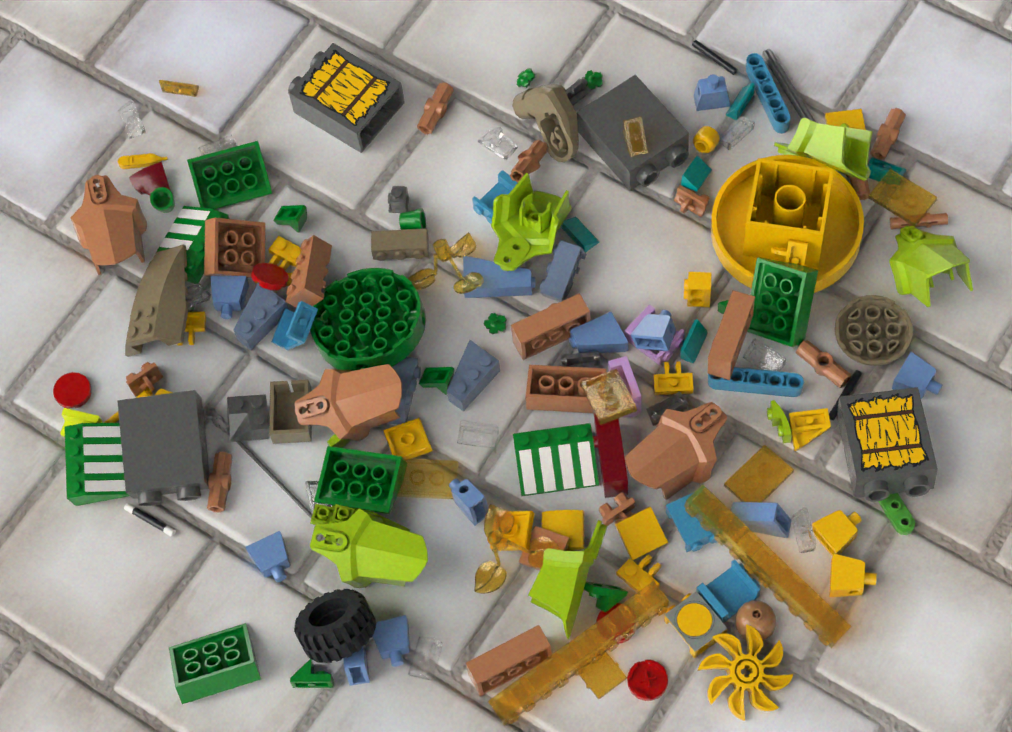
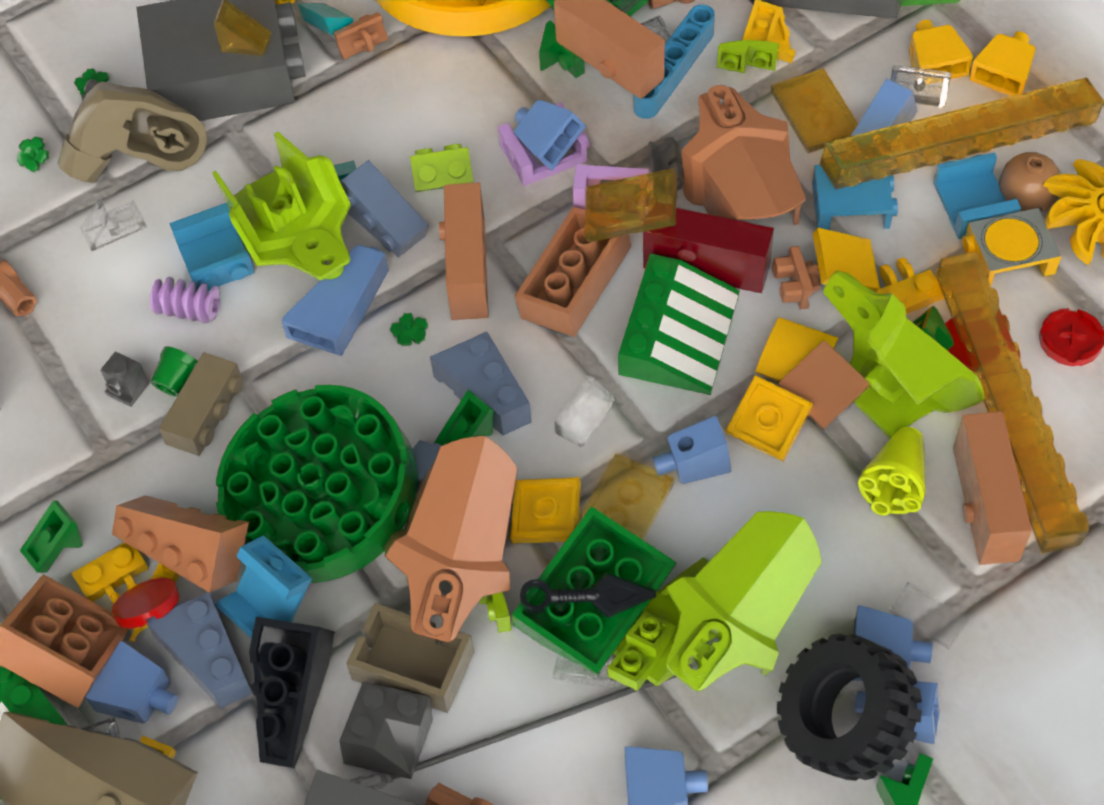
camera: 70 degrees left, 5 degrees down
(262, 361) = (288, 677): none -> black wedge
(355, 487) = (608, 594): none -> black piece
(460, 203) = (185, 301): none -> lavender piece
(463, 247) = (263, 328): clear yellow plant -> none
(497, 523) = (830, 384): clear yellow plant -> none
(503, 608) = (896, 475): none -> neon yellow cone
(529, 160) = (177, 188): nougat piece -> none
(584, 360) = (533, 241): flat silver hinge -> none
(599, 335) = (509, 205): medium blue slope -> none
(602, 676) = (1052, 388): clear yellow piece -> none
(612, 289) = (441, 168): none -> lime bracket
(673, 383) = (622, 148): yellow hinge -> none
(693, 342) = (570, 103): teal slope -> none
(698, 289) = (507, 65): yellow brick -> none

